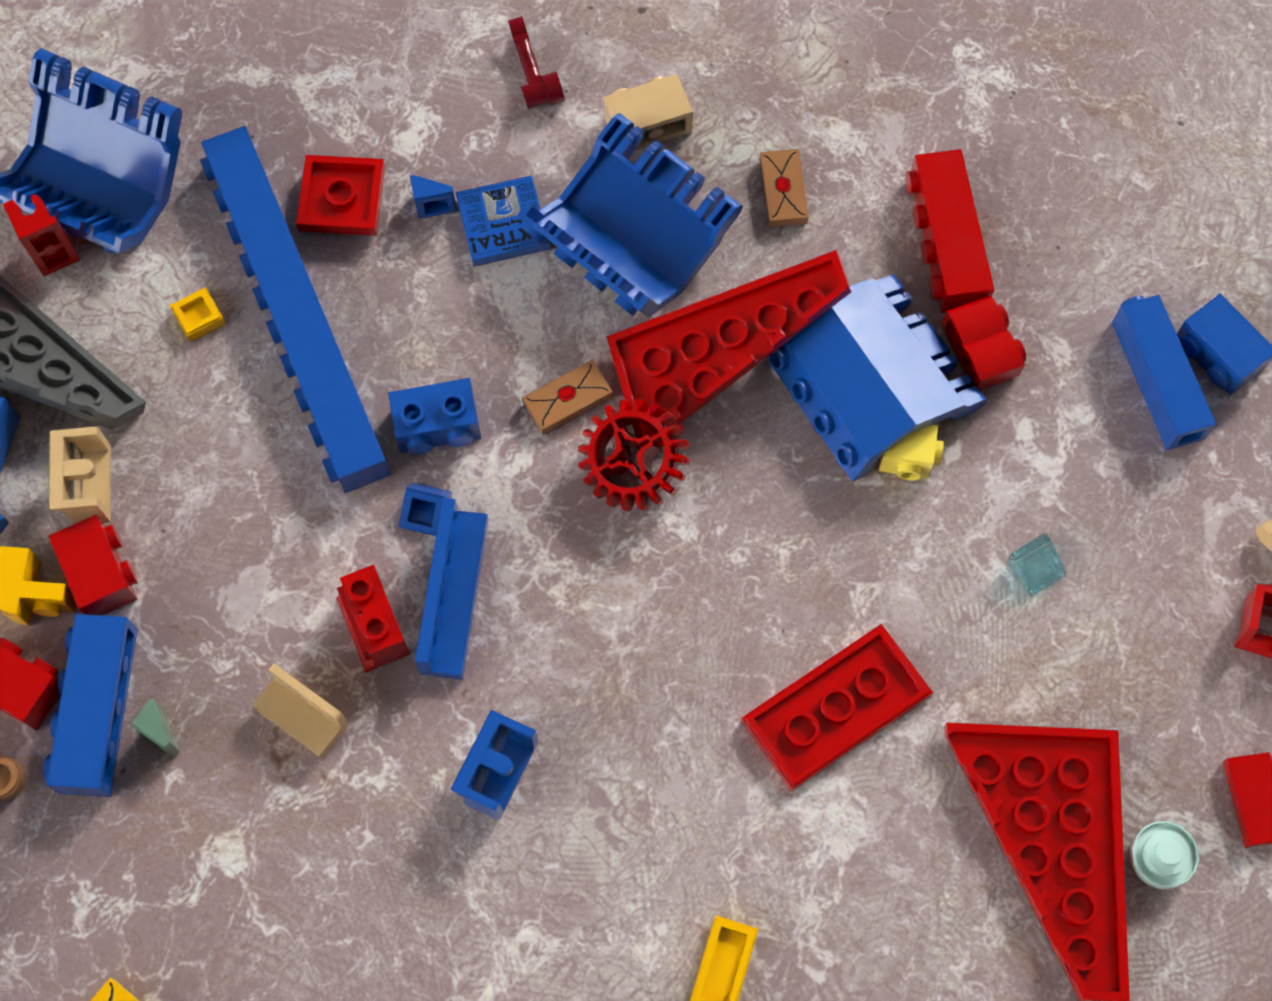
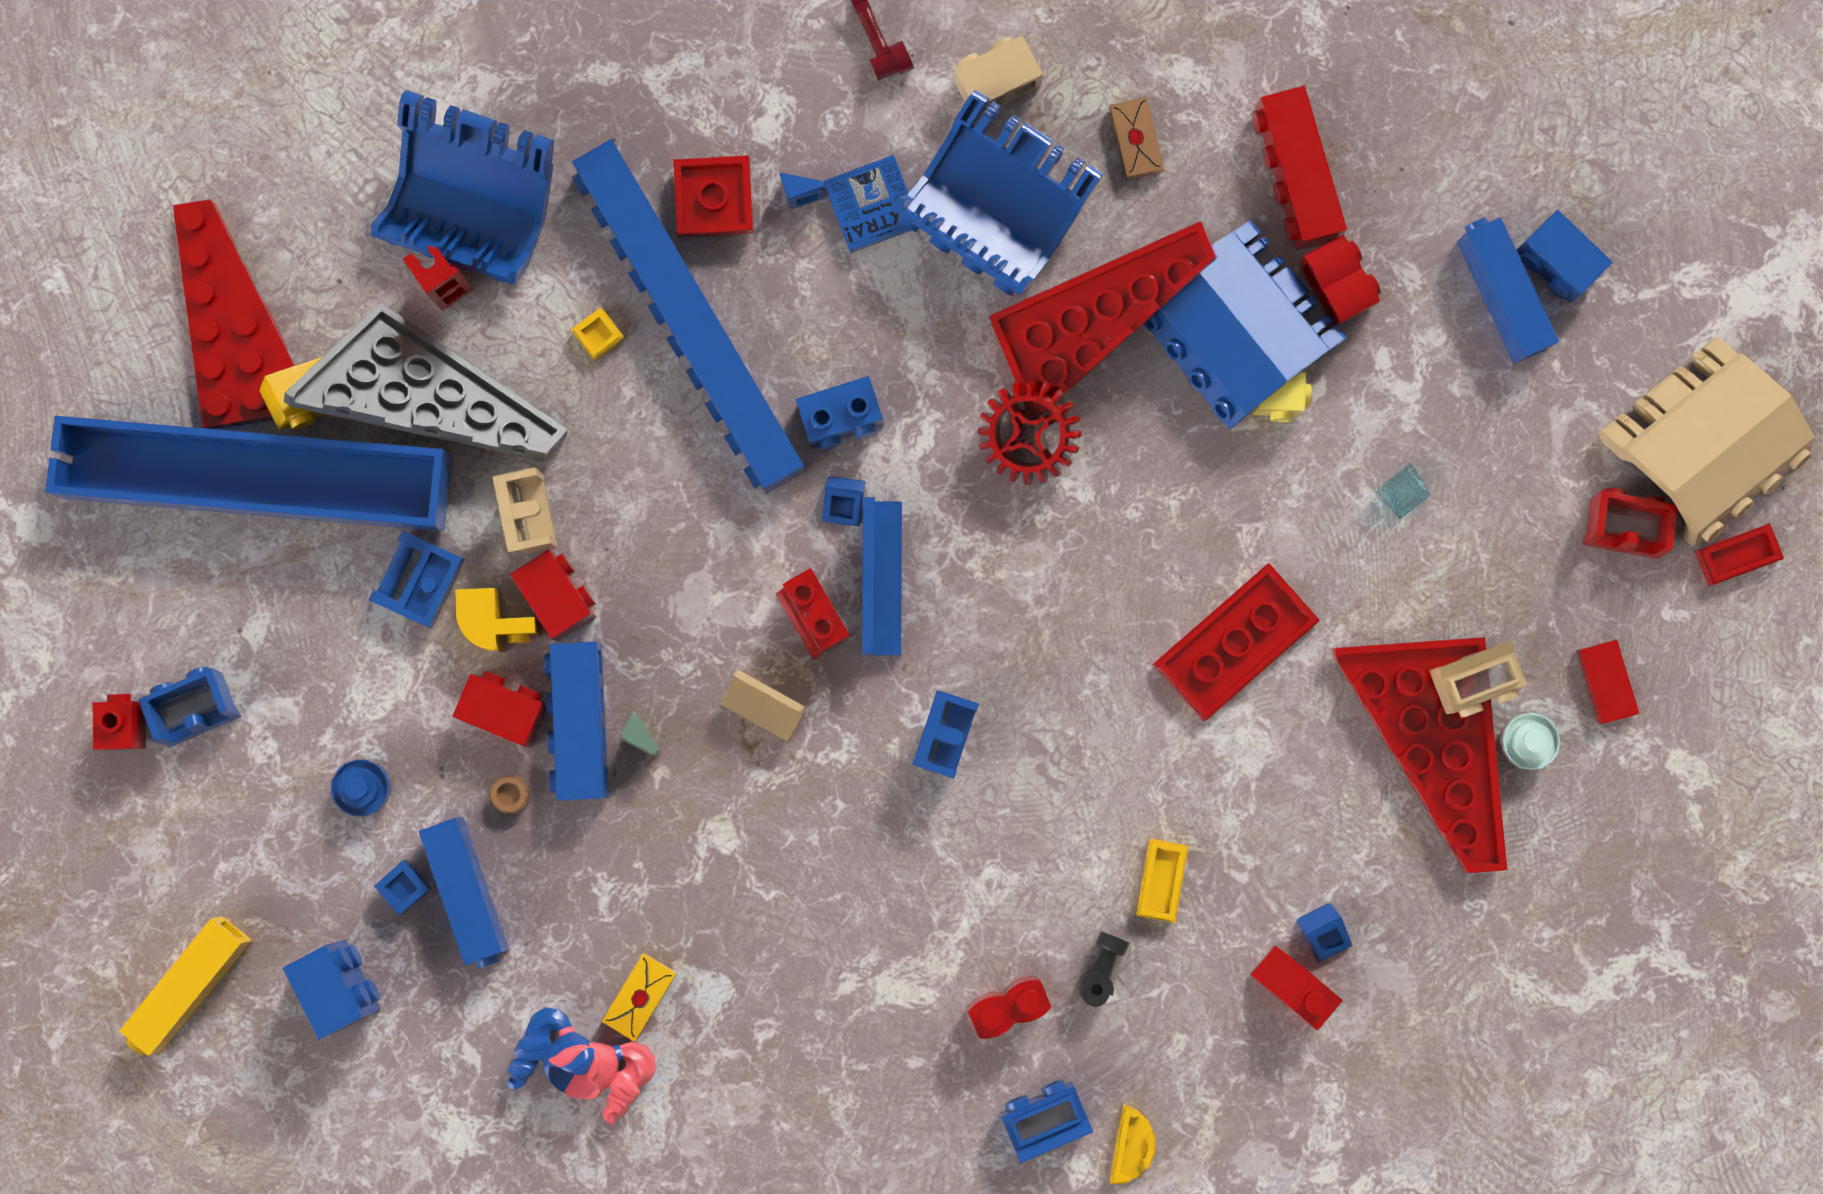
camera: 10 degrees left, 15 degrees up
(567, 397) = (958, 377): medium nougat tile -> none
(1107, 771) = (1479, 678): none -> tan window

